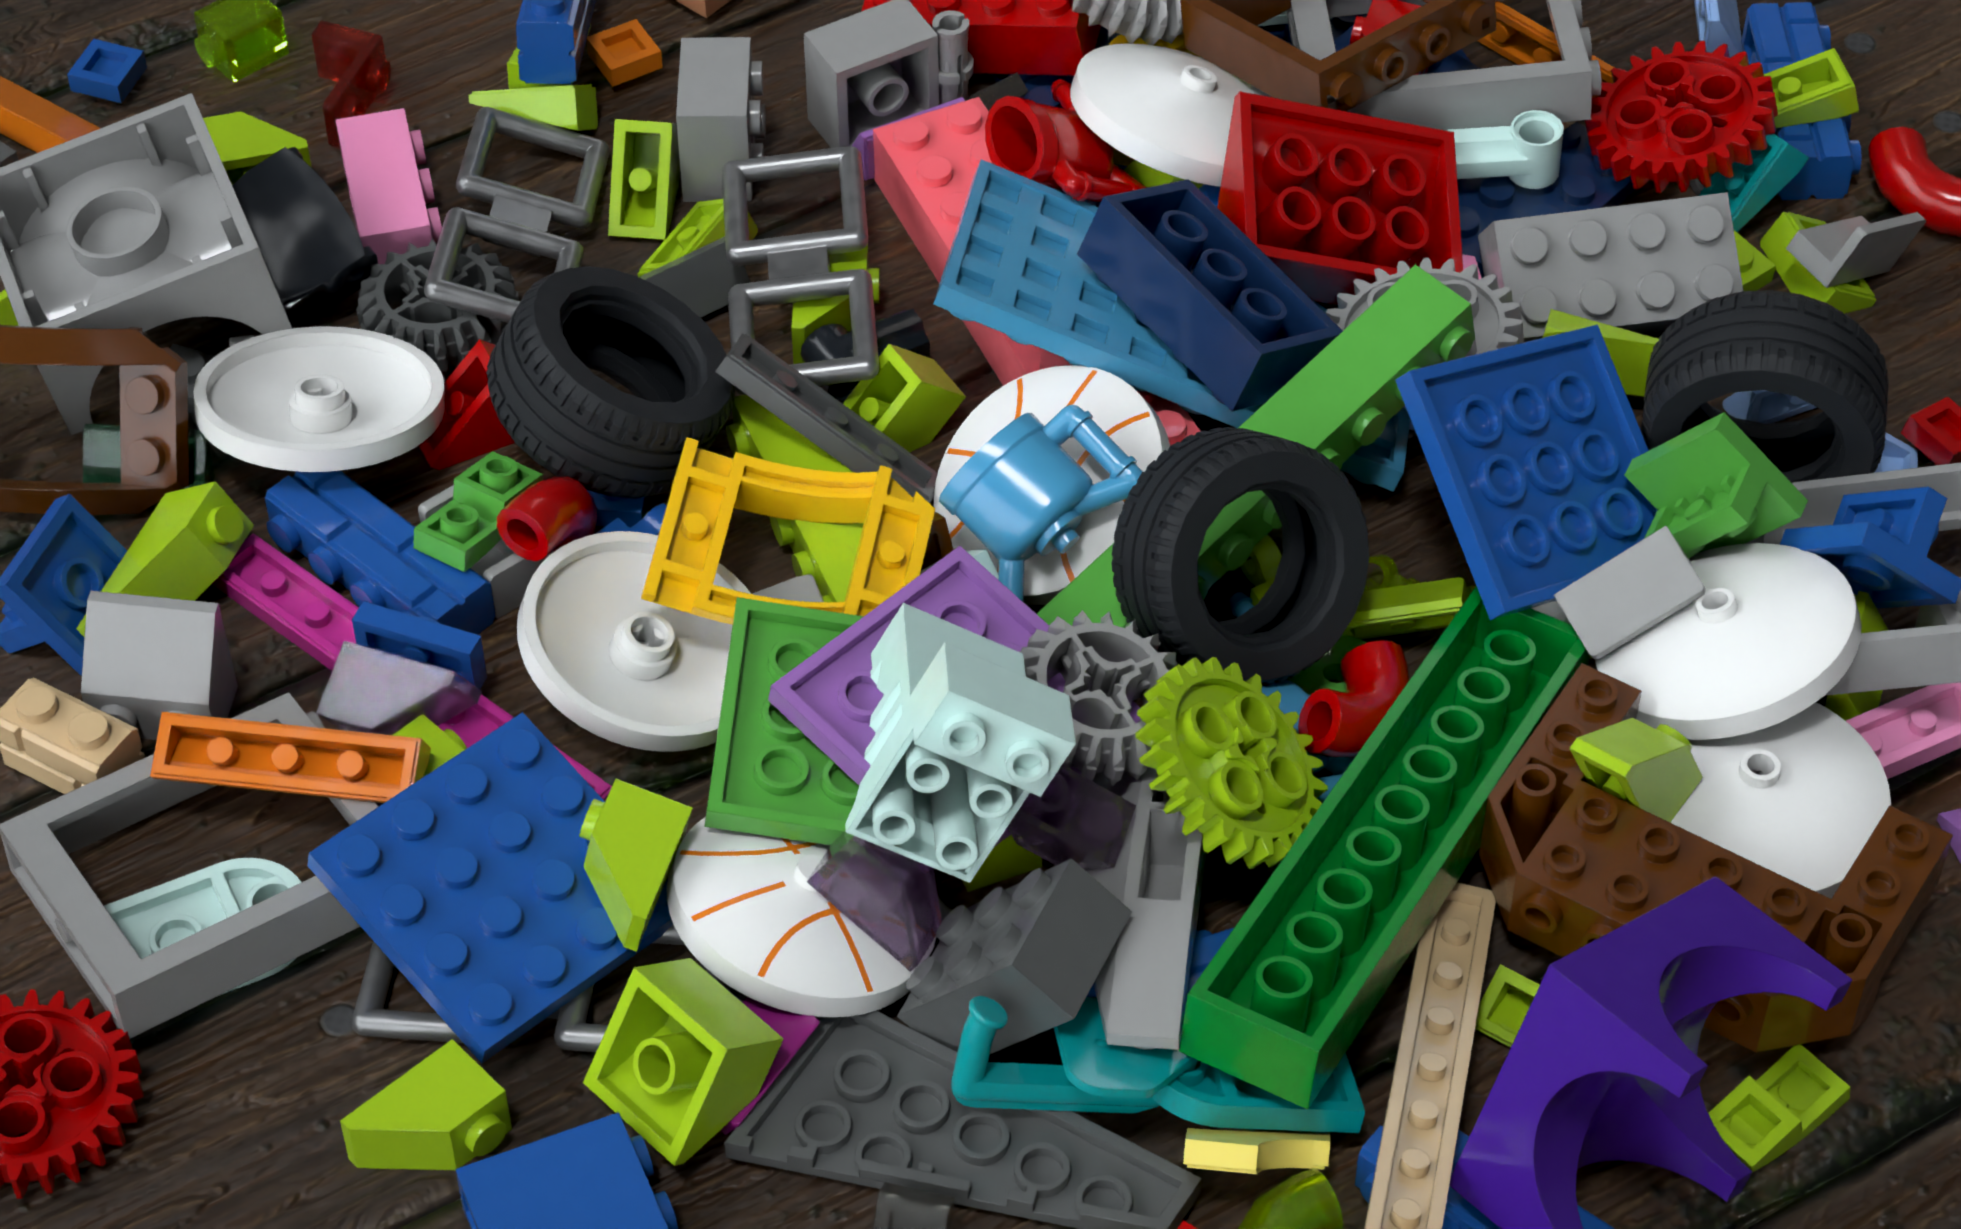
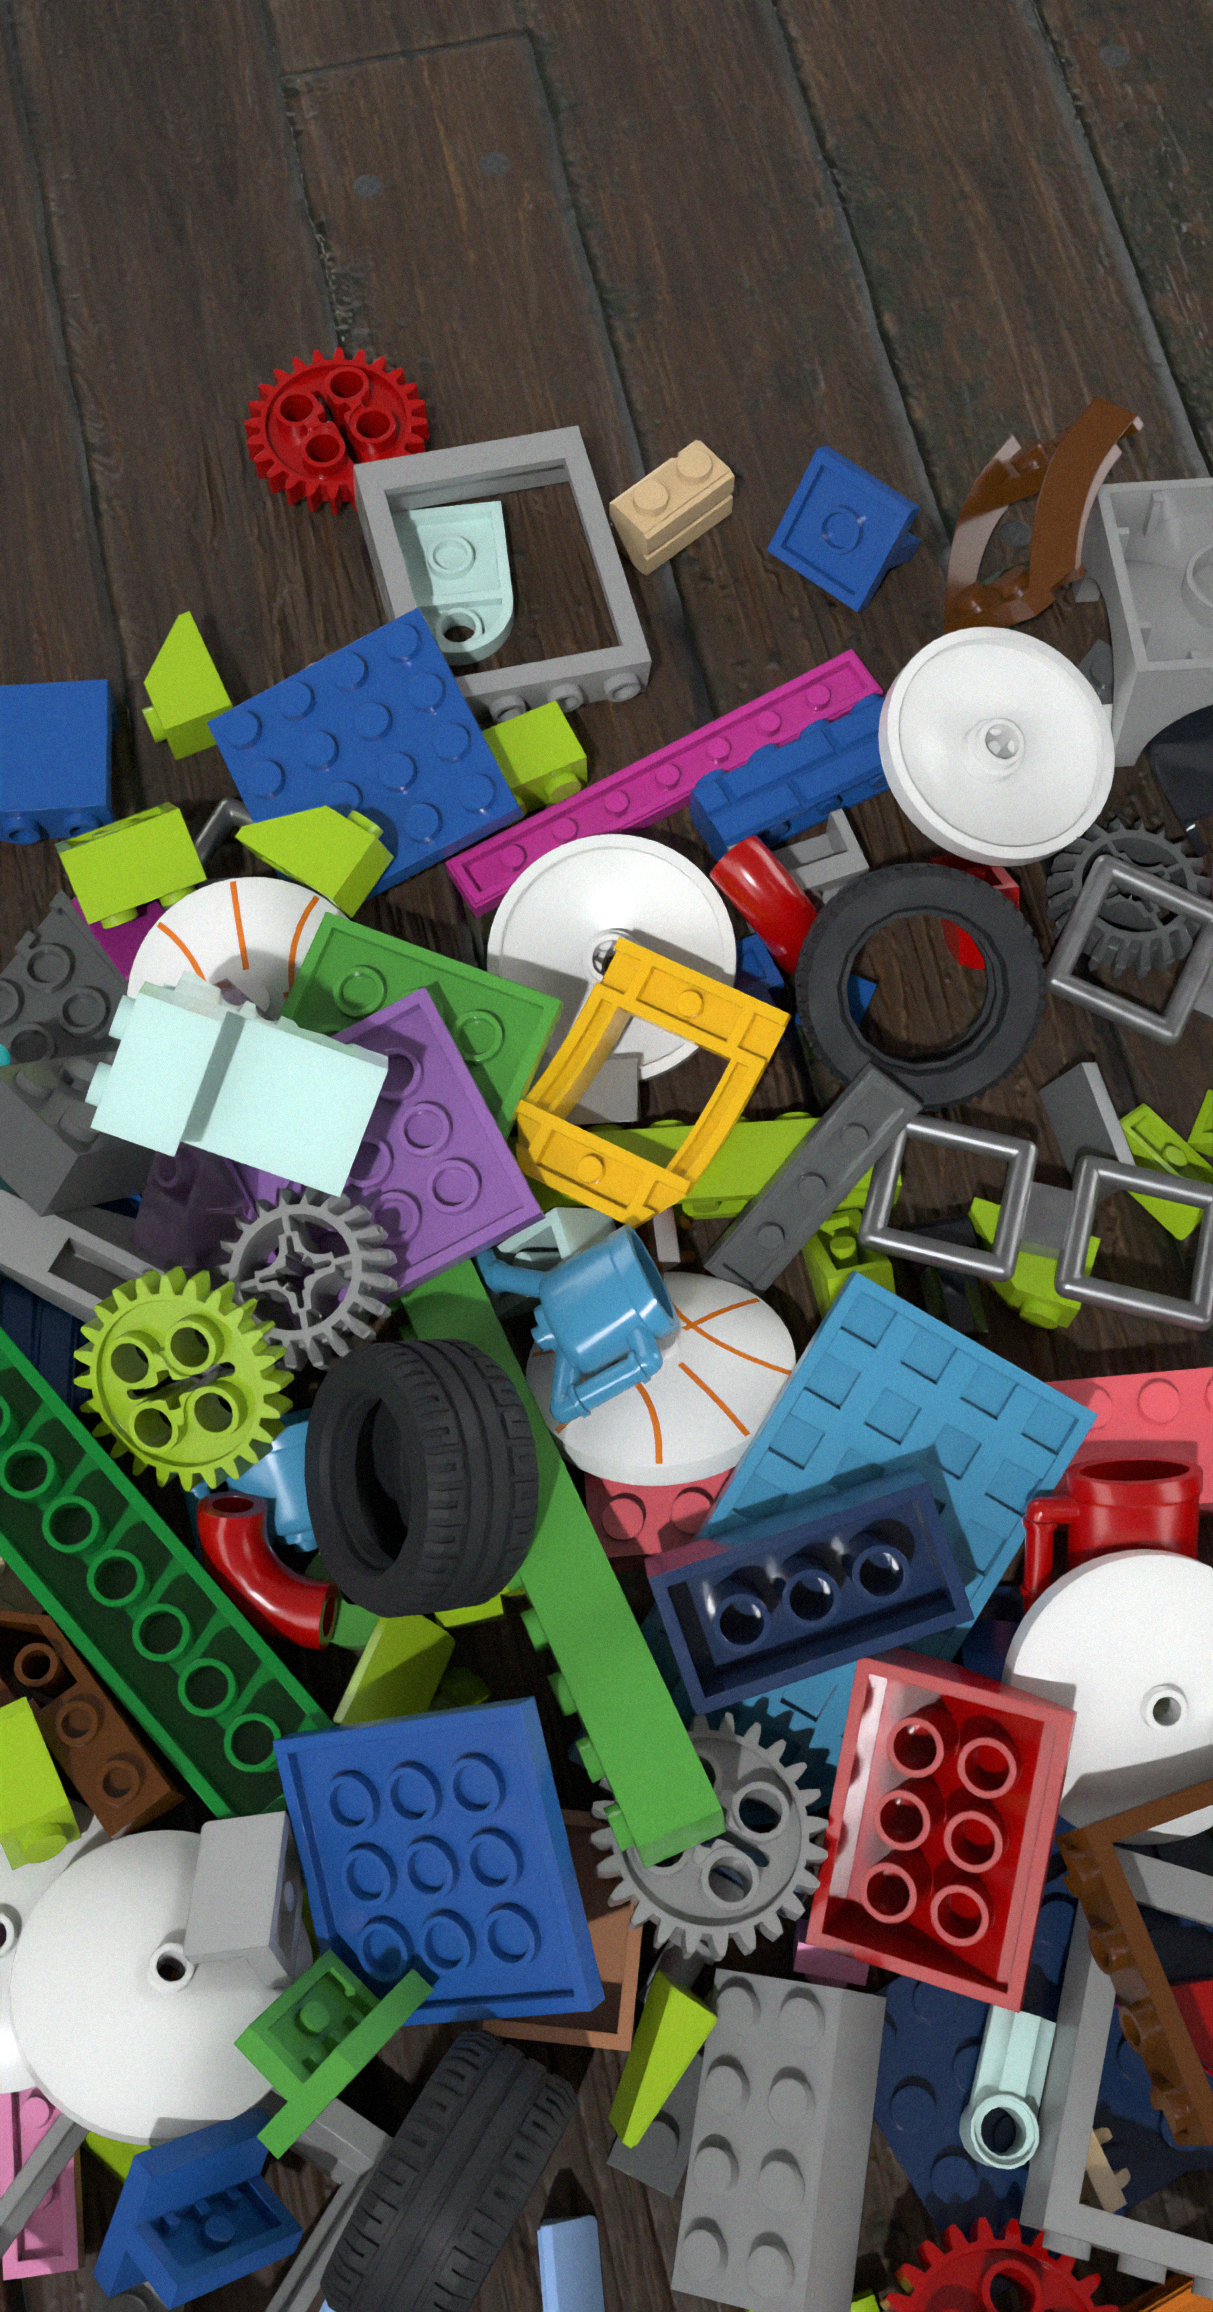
camera: 110 degrees right, 20 degrees up
(155, 659) = (717, 575): light grey slope -> none
(181, 546) = (847, 606): lime slope -> none
(286, 757) = (560, 638): orange slope -> none
(386, 692) = (627, 741): clear purple slope -> none
(421, 641) = (669, 774): blue plate -> none
(468, 524) = (813, 854): bright green slope -> none

